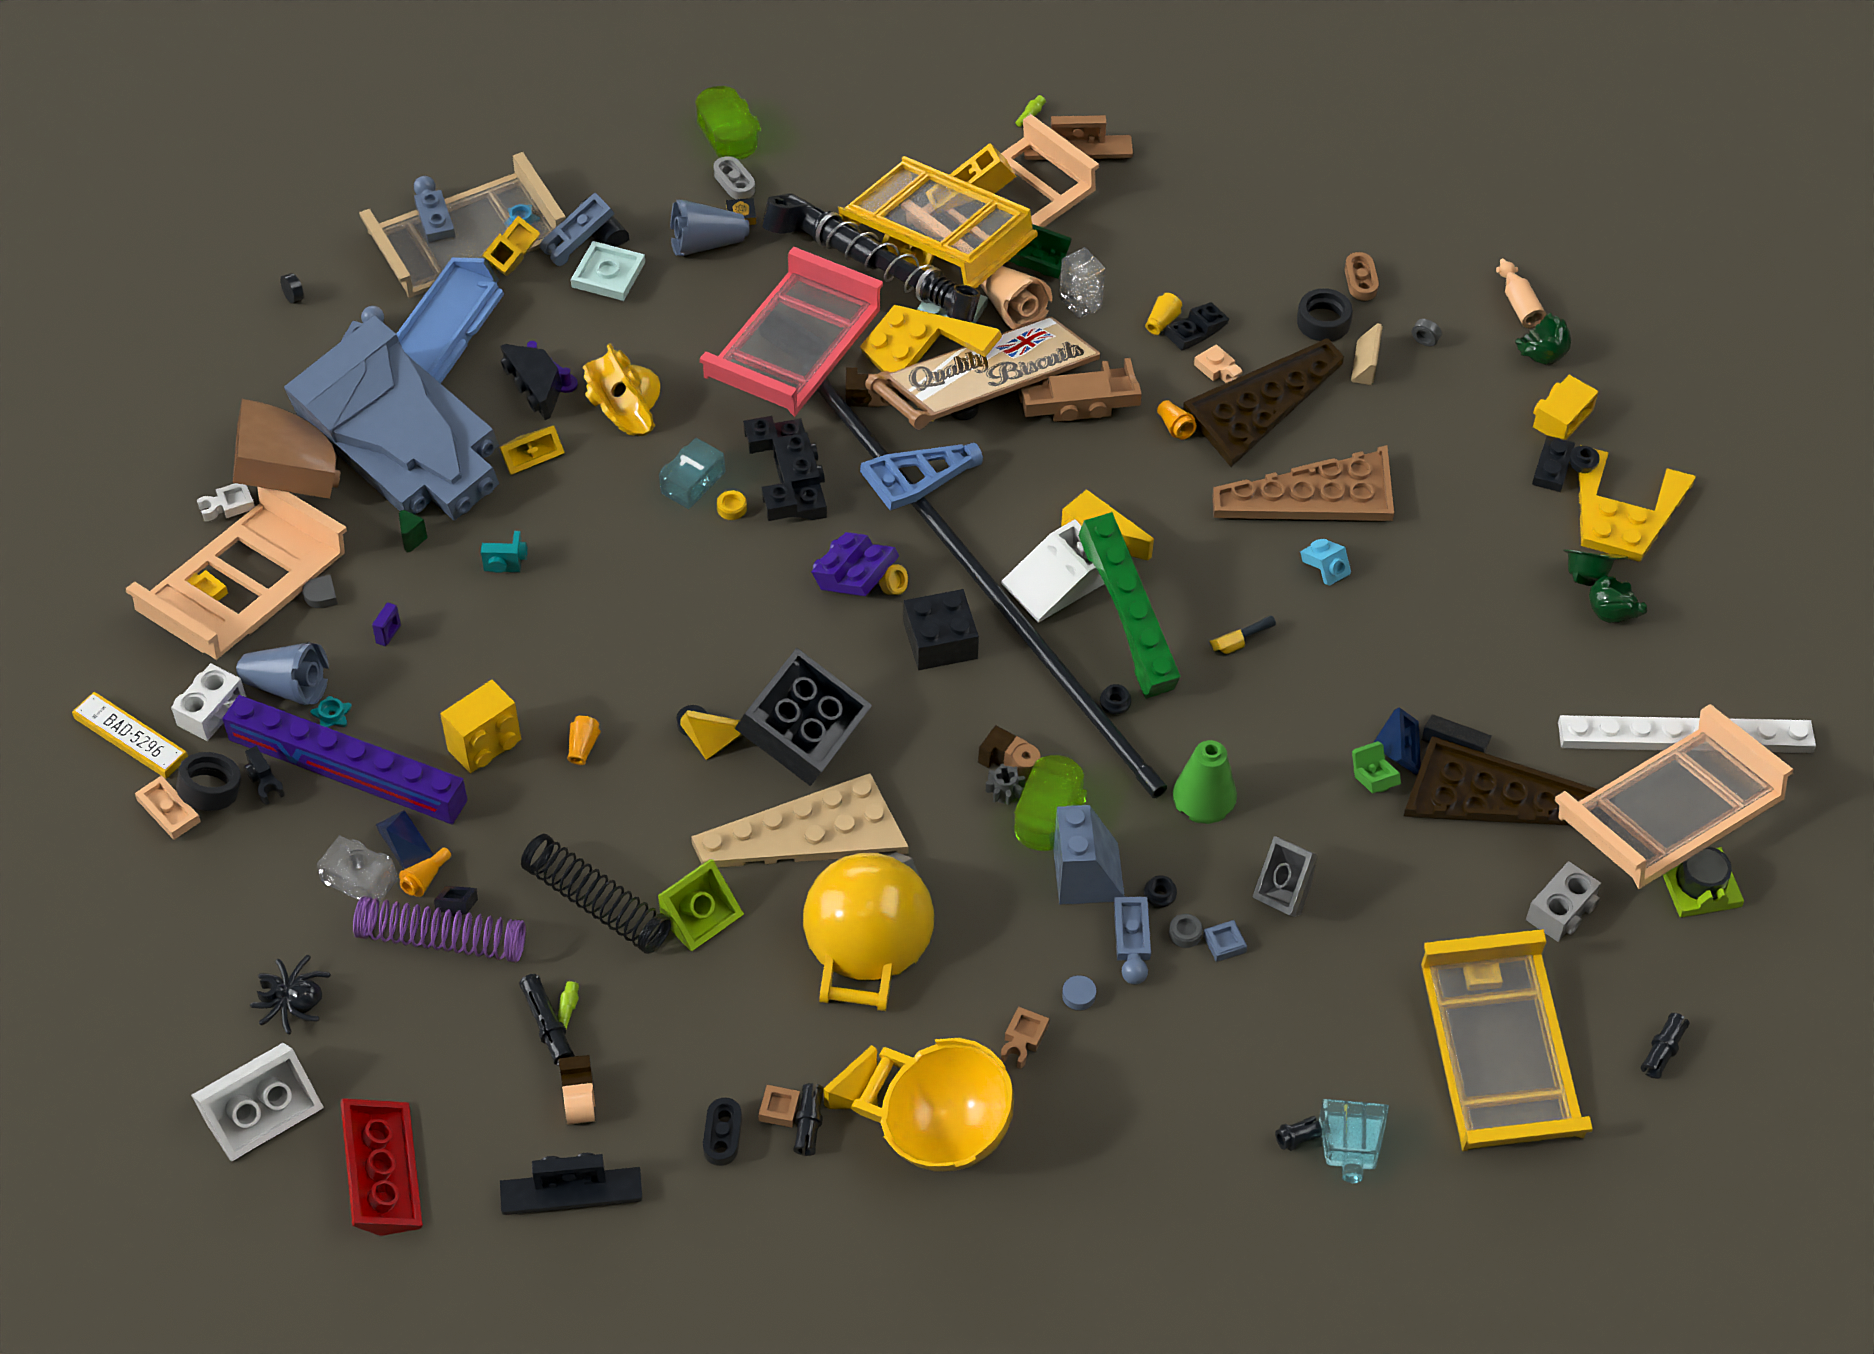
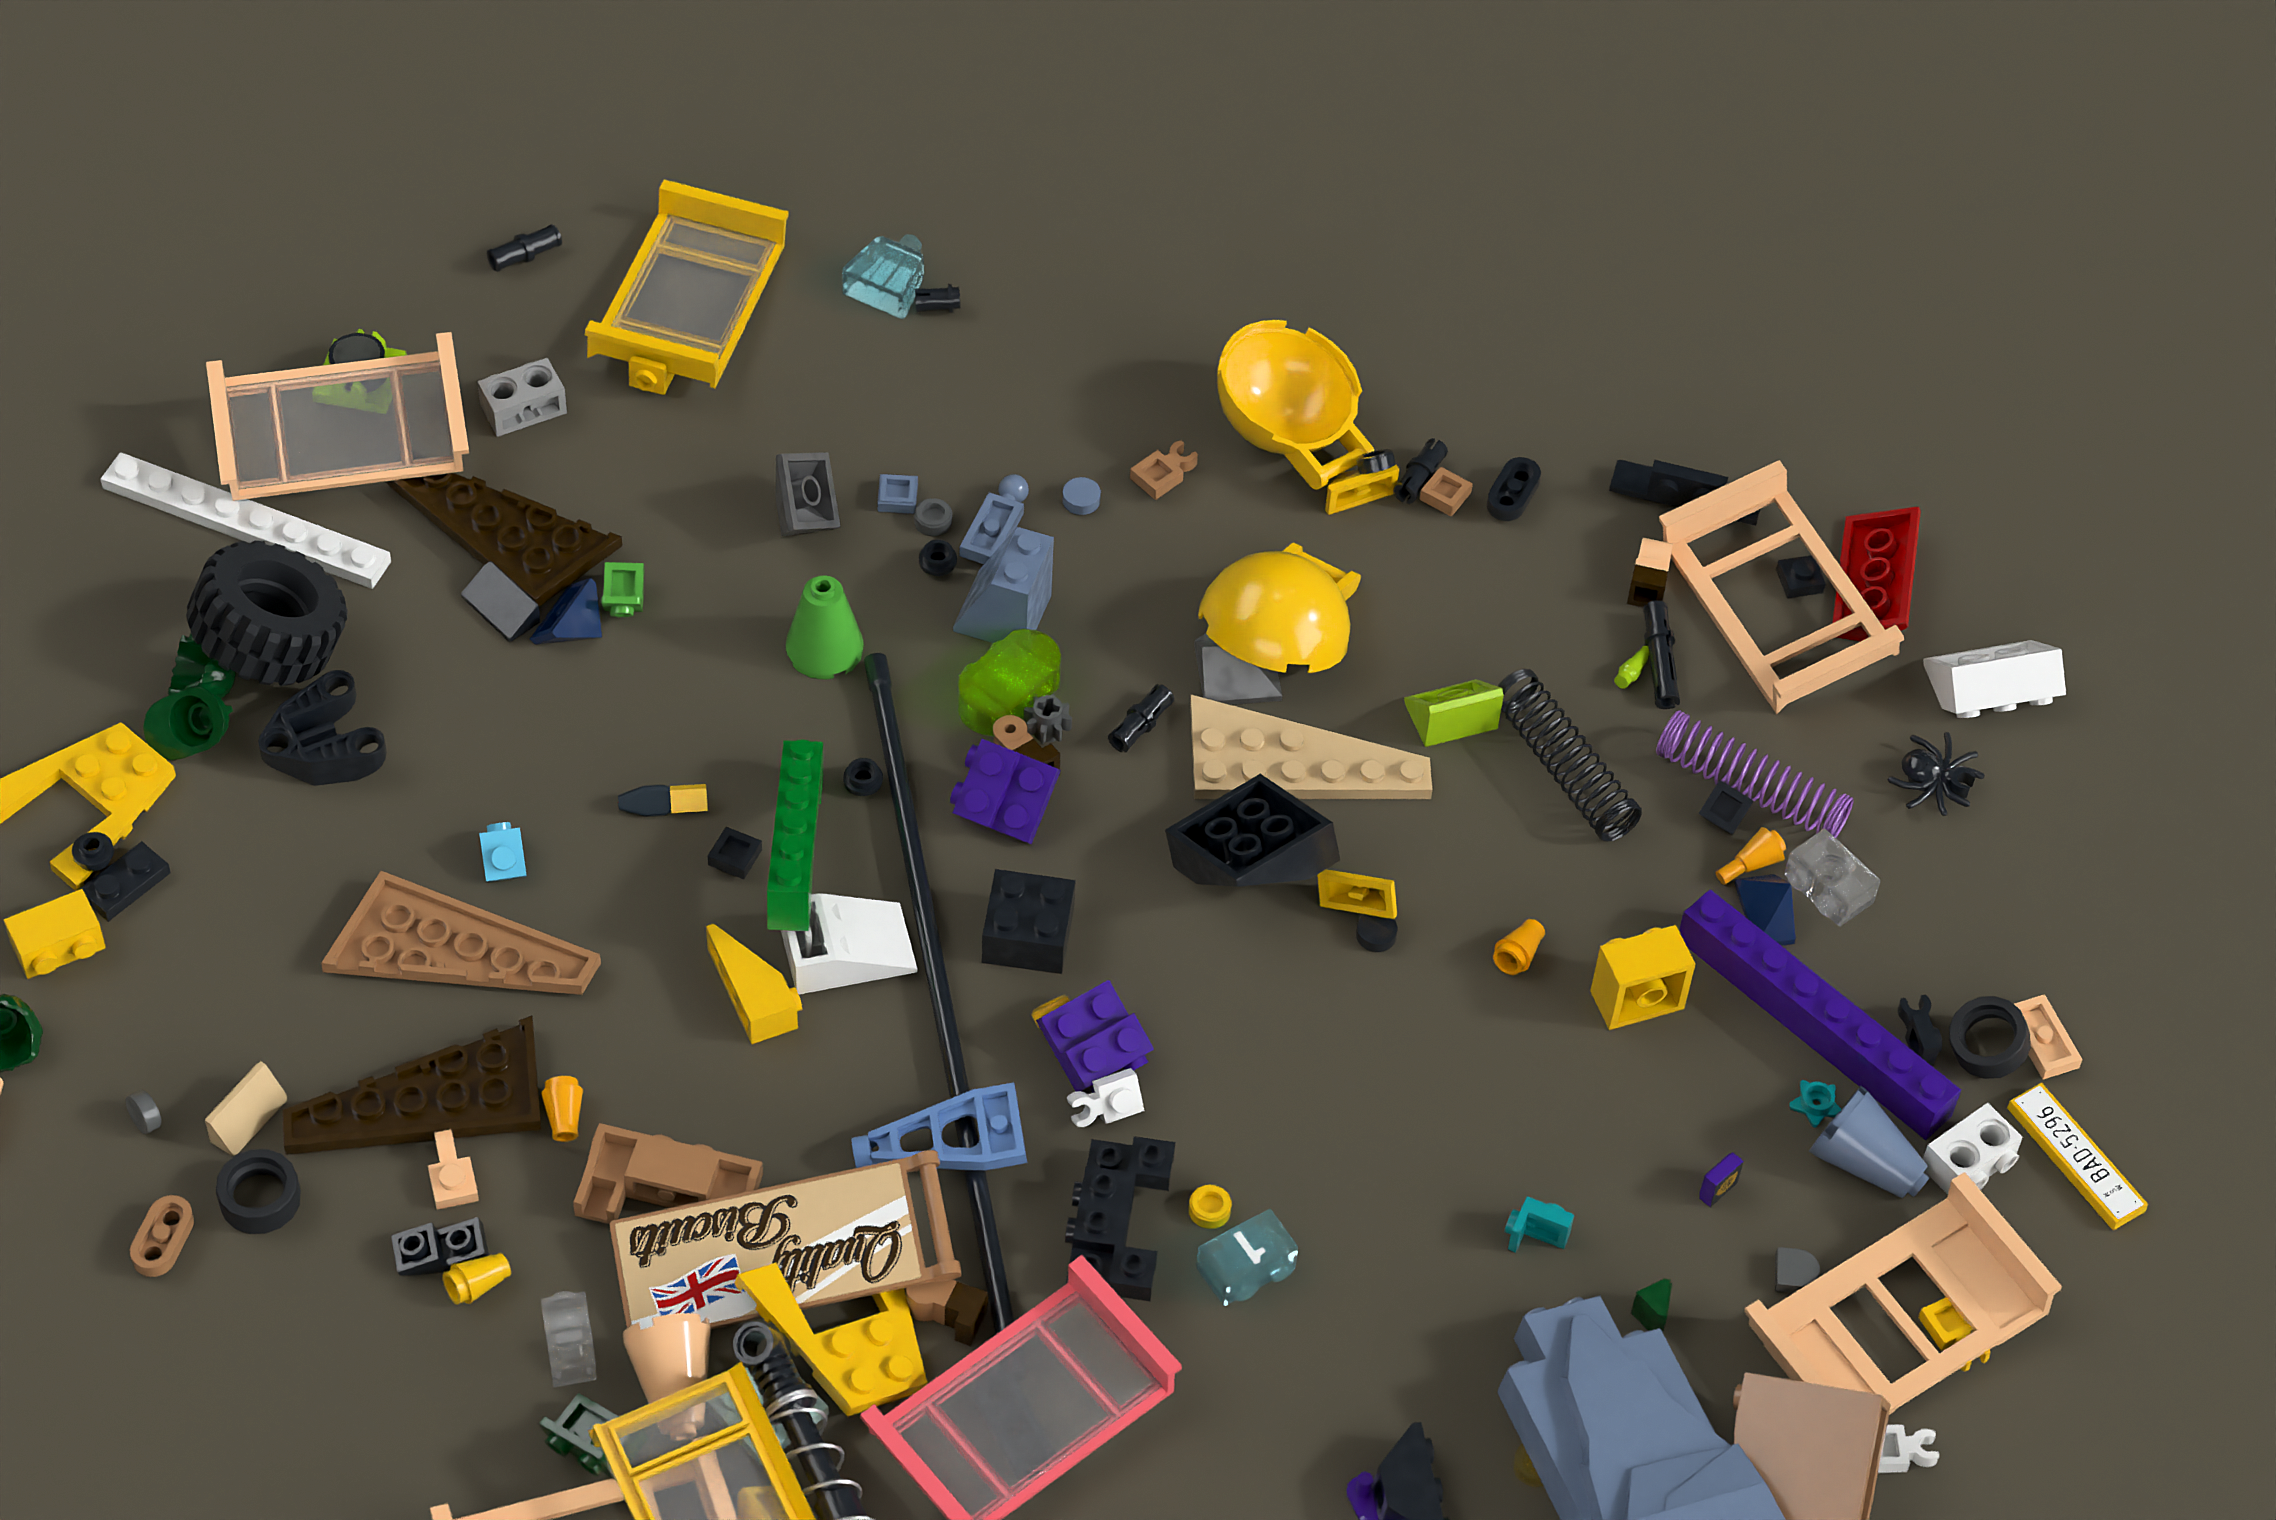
camera: 160 degrees left, 0 degrees up
(406, 1025) = (1731, 504): none -> light nougat piece
(448, 1146) = (1800, 576): none -> black plate
(531, 449) = (1454, 1390): yellow slope -> none
(631, 409) = (1295, 1435): yellow piece -> none
(823, 537) = (1112, 1099): none -> white plate
(845, 1086) = (1375, 461): none -> black tile
(937, 817) = (1141, 718): none -> black pin
(1011, 710) = (1004, 790): none -> dark purple plate
(1171, 612) = (734, 852): none -> black plate
(1502, 565) = (310, 739): none -> black connector
(1590, 585) = (266, 613): none -> black tyre

